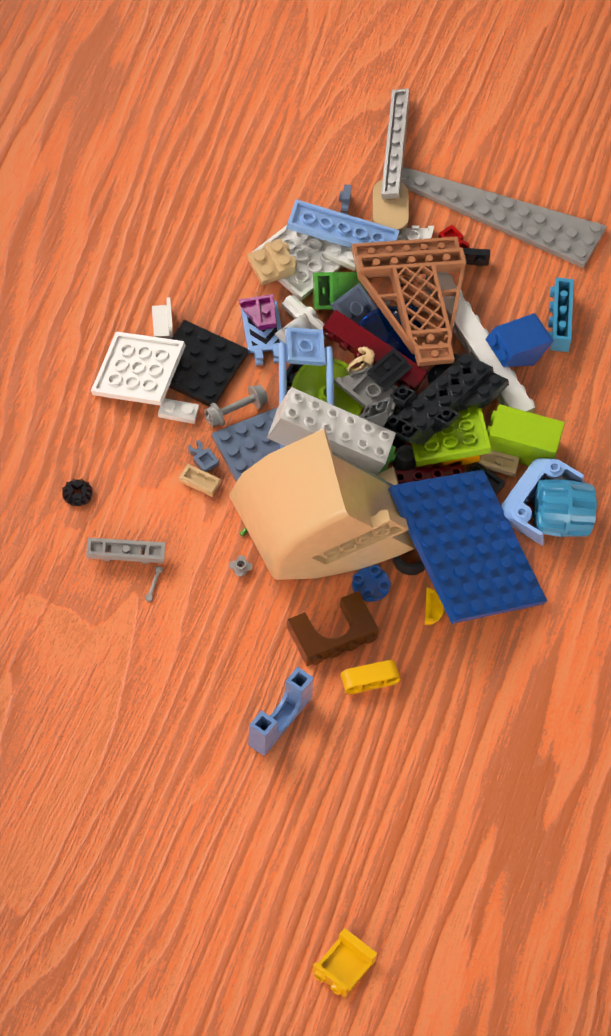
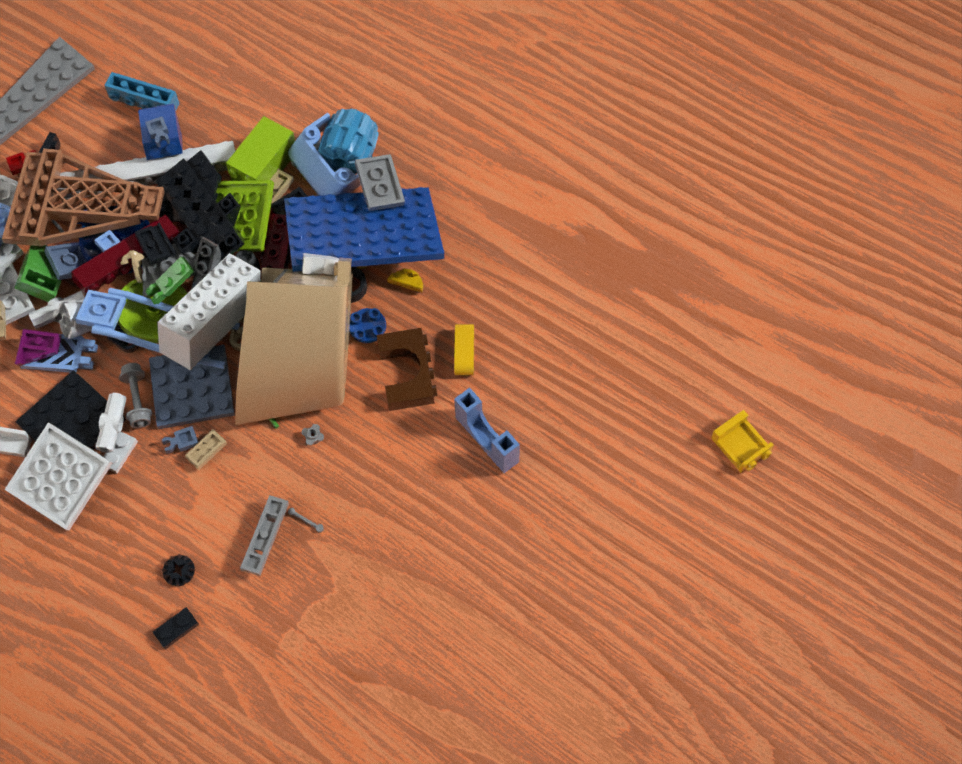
camera: 70 degrees left, 5 degrees up
(22, 505) = (175, 628): none -> black plate
(200, 392) = (111, 423): none -> white piece
(352, 392) = (170, 280): none -> bright green hinge
(382, 331) = (106, 241): none -> light blue plate
(399, 503) = (318, 264): none -> white leg
(511, 333) = (158, 130): none -> sand blue plate
(523, 545) = (379, 182): none -> light grey plate

